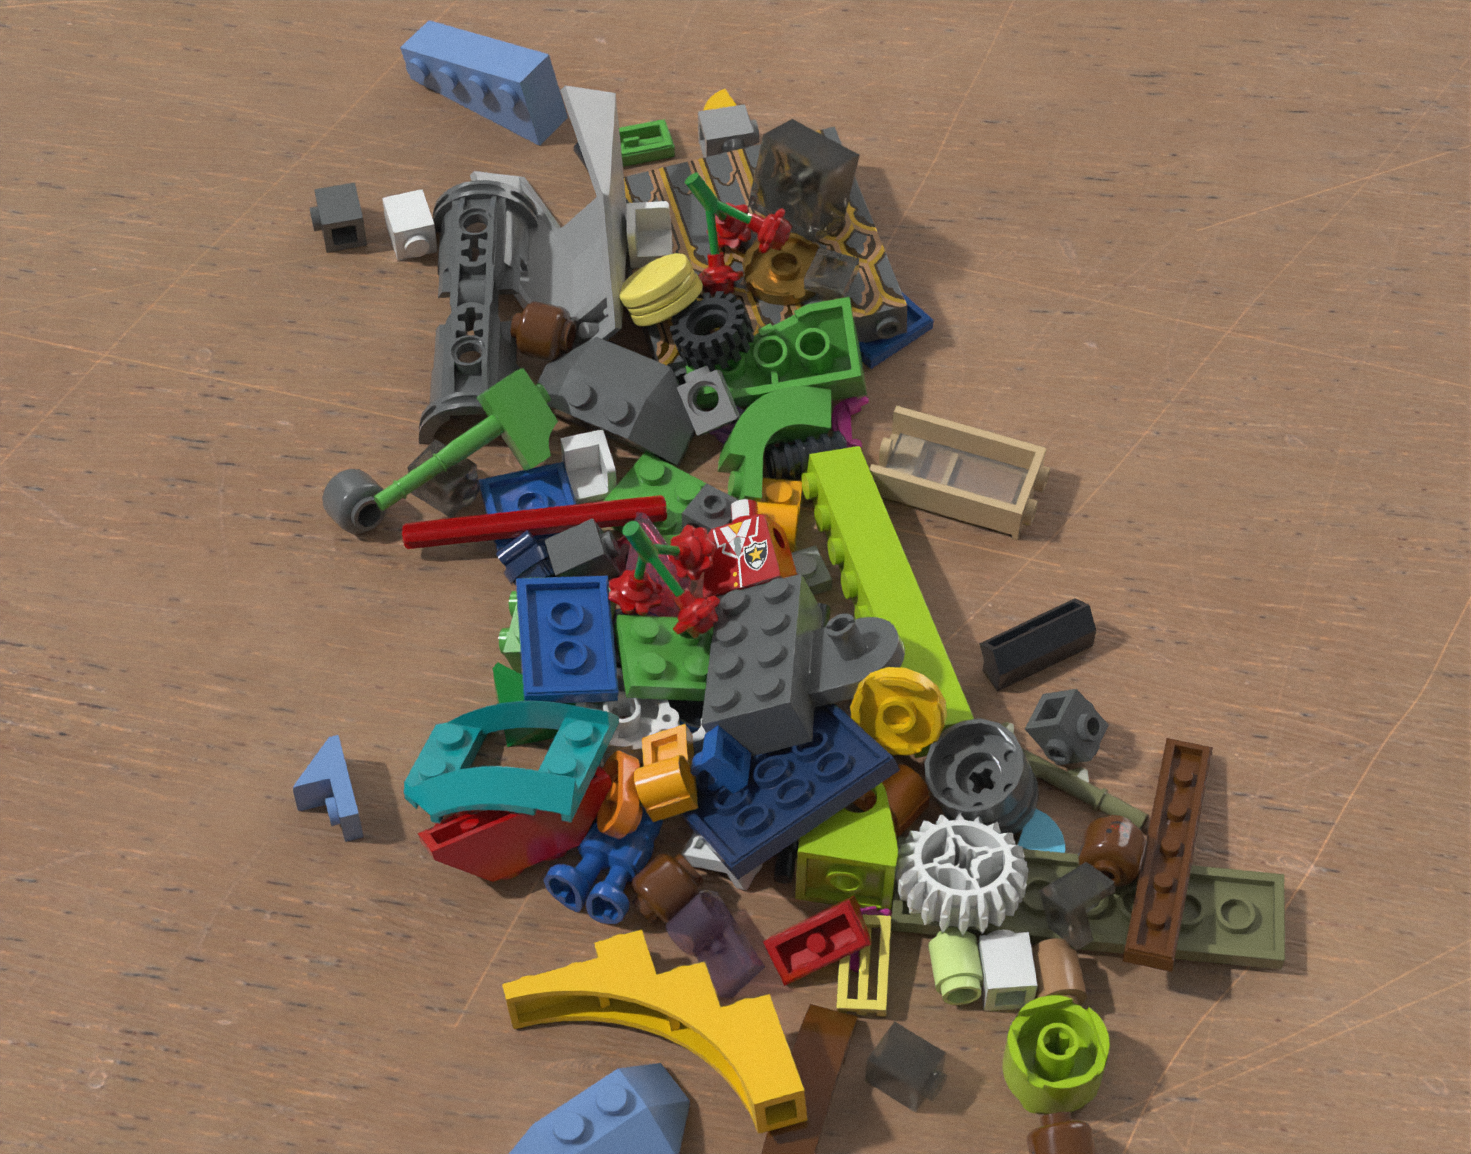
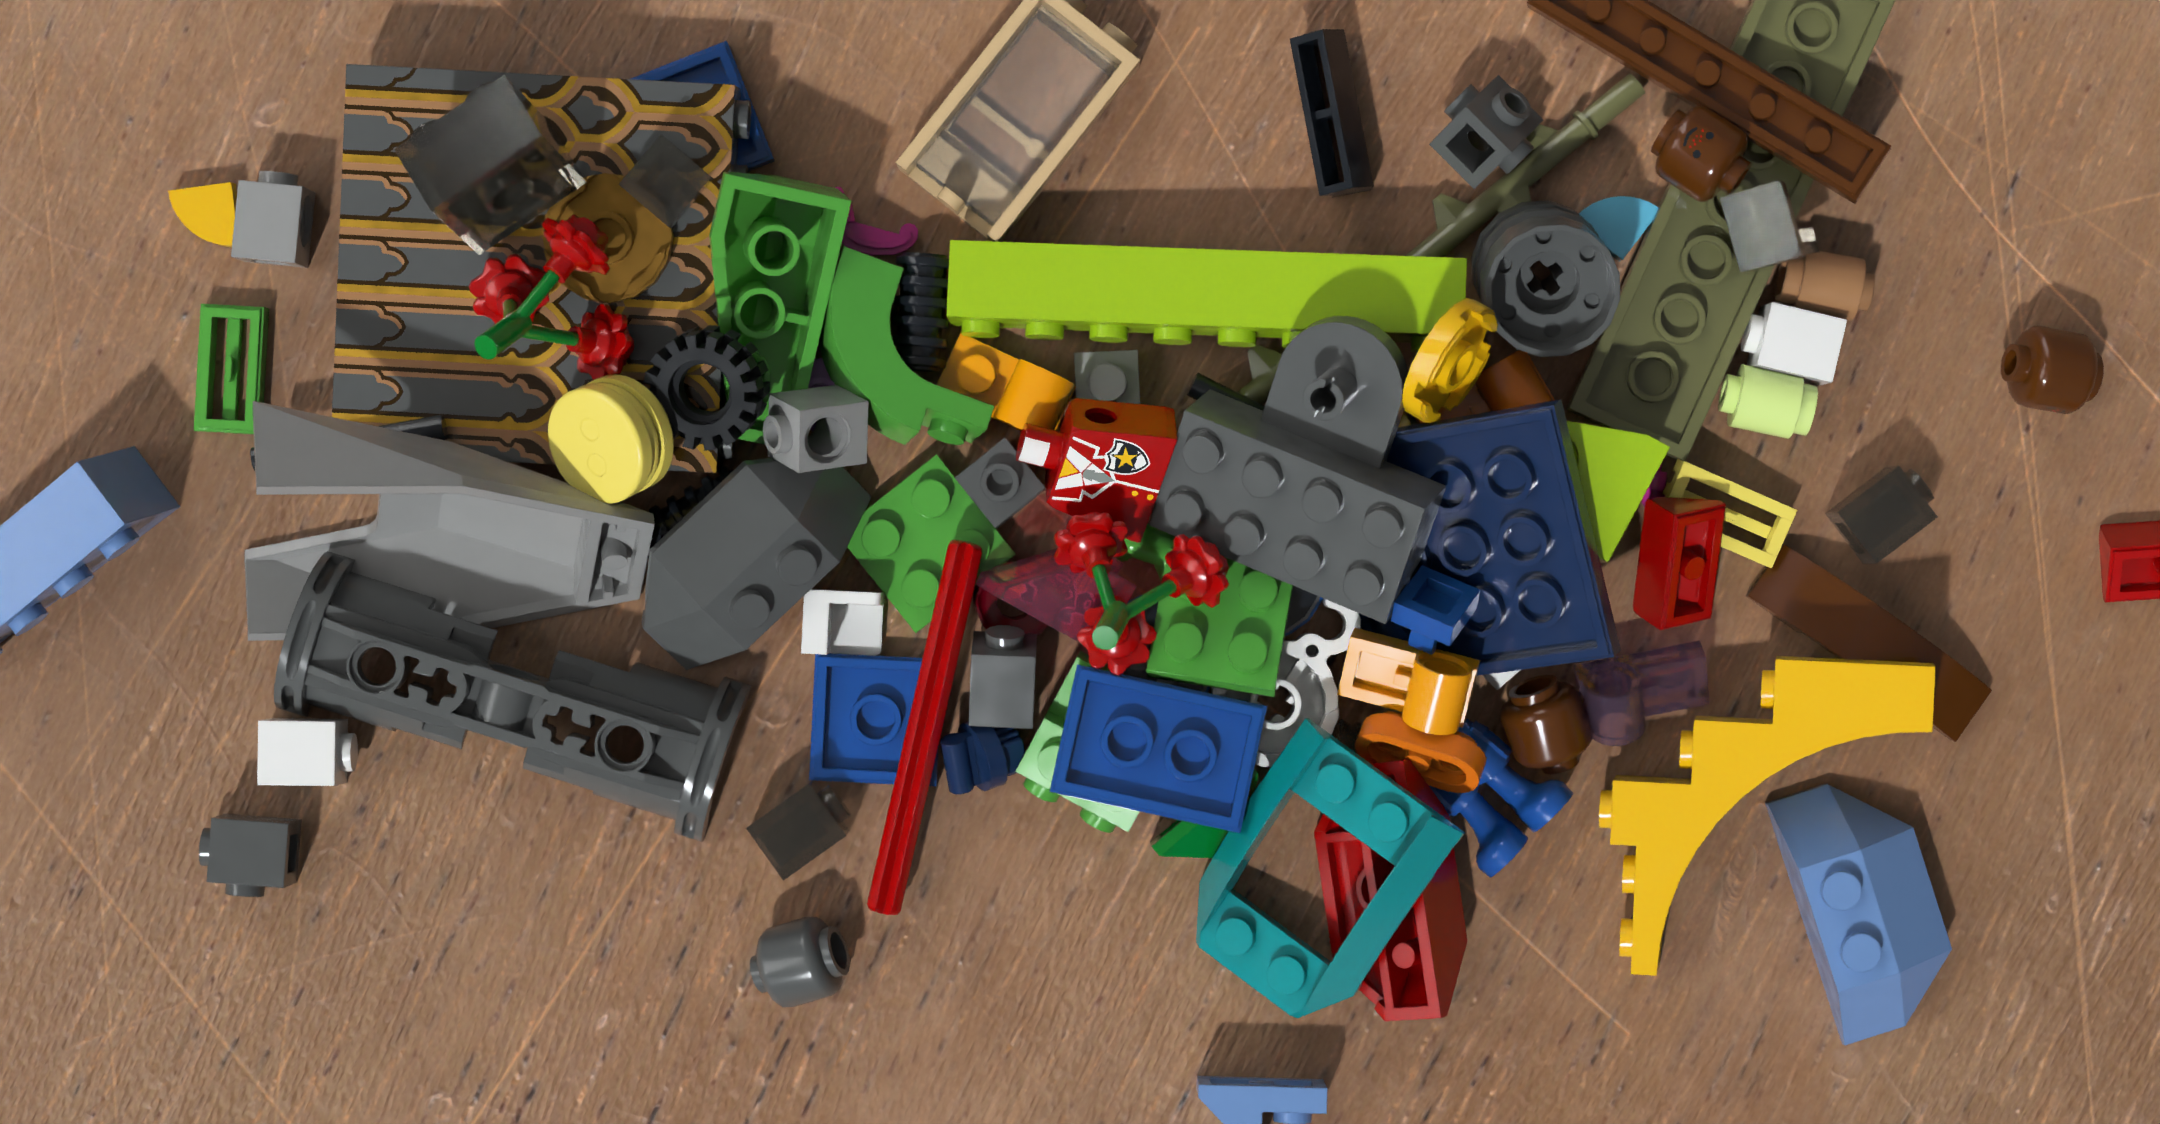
camera: 75 degrees left, 35 degrees up
(514, 411) = (752, 711): bright green piece -> none
(543, 331) = (600, 620): reddish brown head -> none
(648, 232) = (488, 418): white panel -> none
(961, 873) = (1706, 357): white gear -> none
(1055, 1055) = (1954, 300): lime brick -> none

